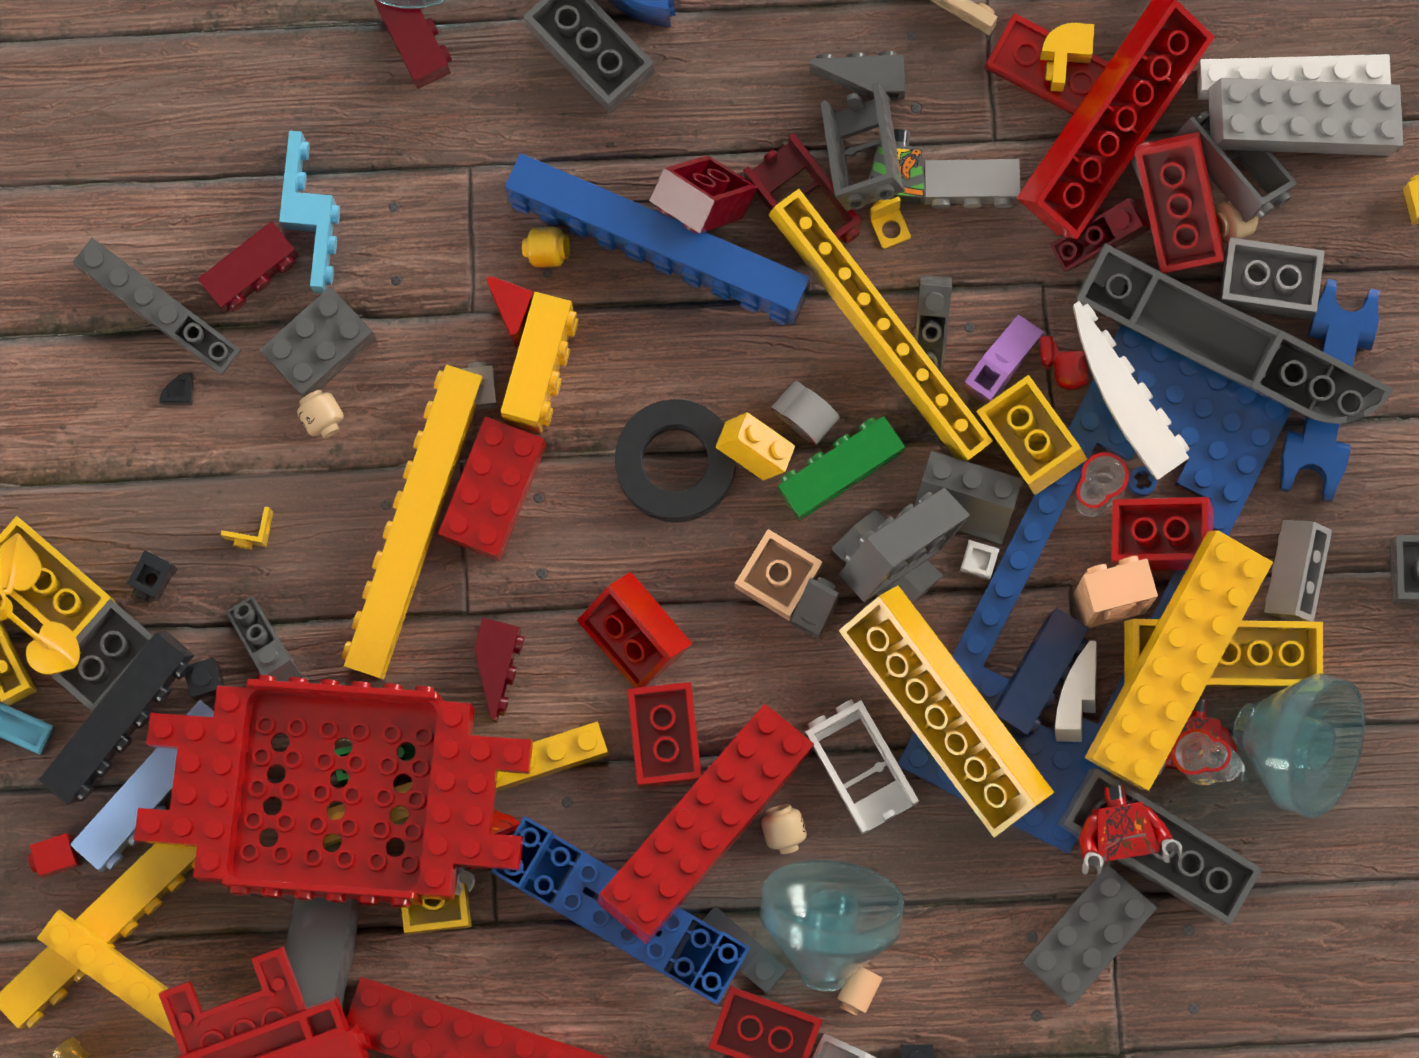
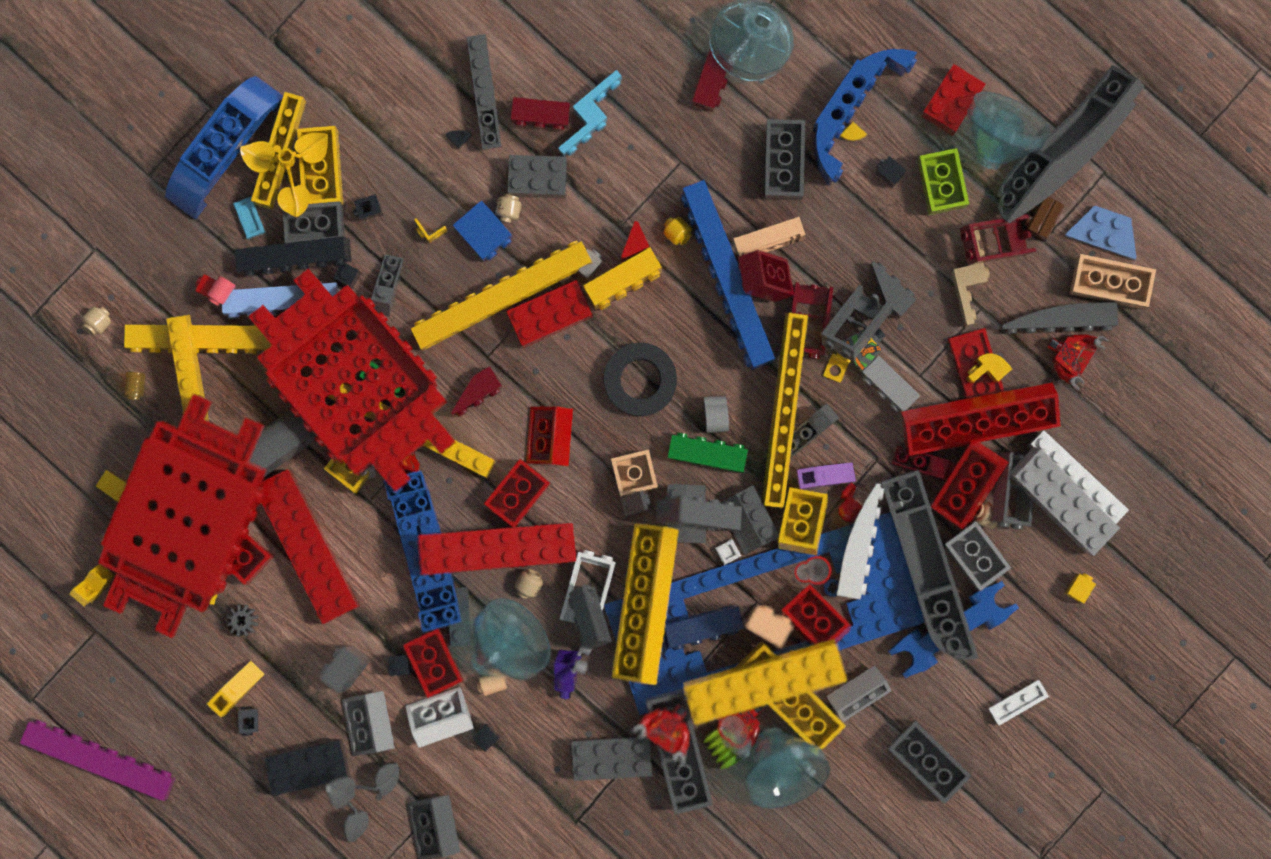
camera: 40 degrees right, 5 degrees up
(70, 843) = (220, 291): none -> coral brick
(317, 470) = (483, 231): none -> blue brick
(664, 146) = (769, 238): none -> light nougat door
(755, 446) = (679, 408): yellow brick -> none
(895, 794) = (589, 617): none -> dark grey slope
(933, 881) = (566, 670): none -> dark purple torso
(1077, 696) = (710, 652): white slope -> none
(1205, 796) = (725, 754): none -> lime piece

